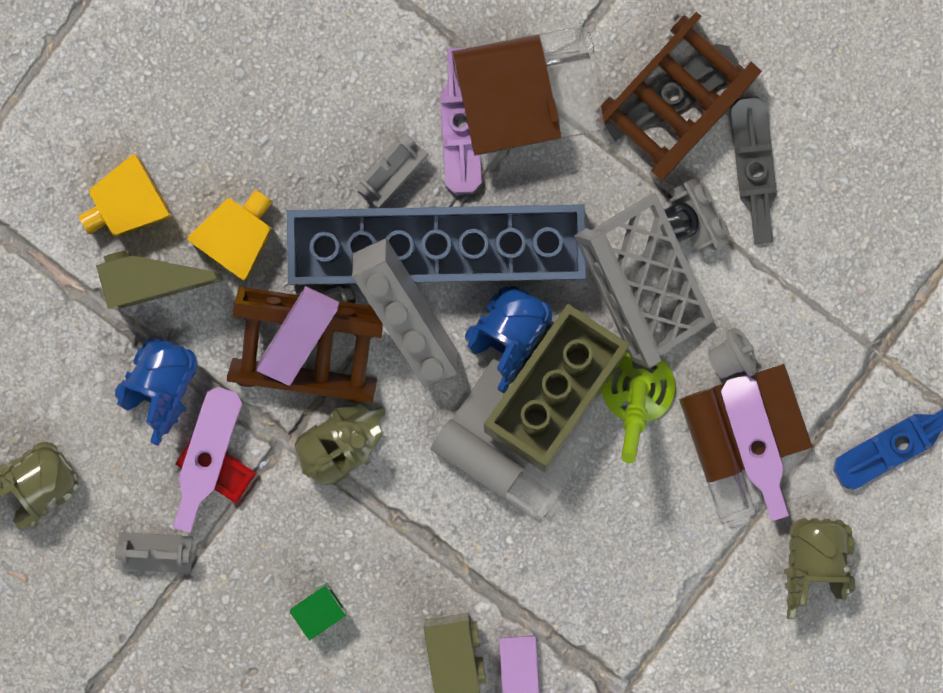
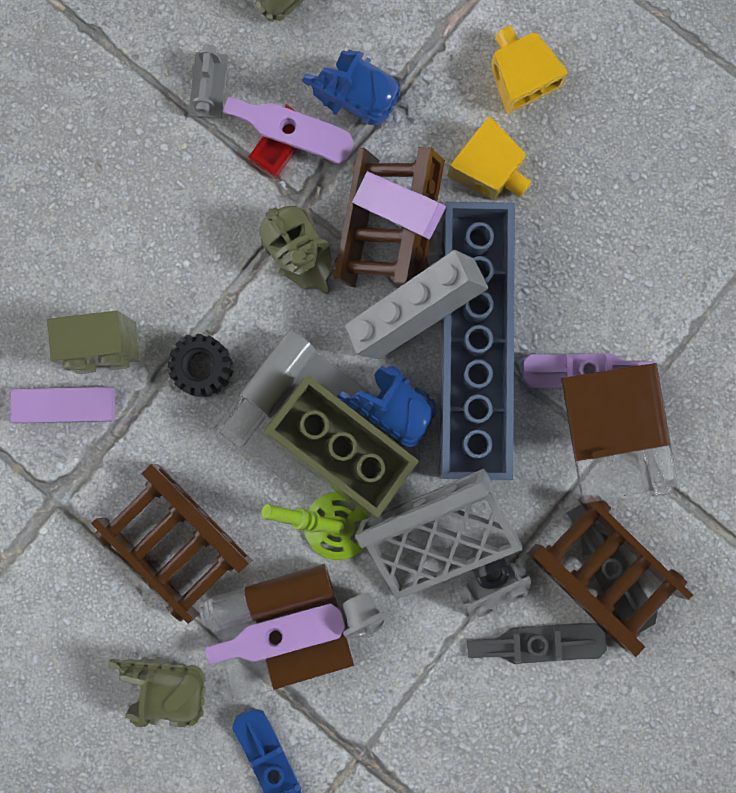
camera: 95 degrees right, 5 degrees down
(137, 280) = (451, 70): olive slope -> none
(318, 611) = (145, 224): green panel -> none
(392, 171) = (554, 313): light grey hinge -> none
(466, 565) = (190, 348): none -> black tyre
(628, 554) = (181, 509): none -> reddish brown fence

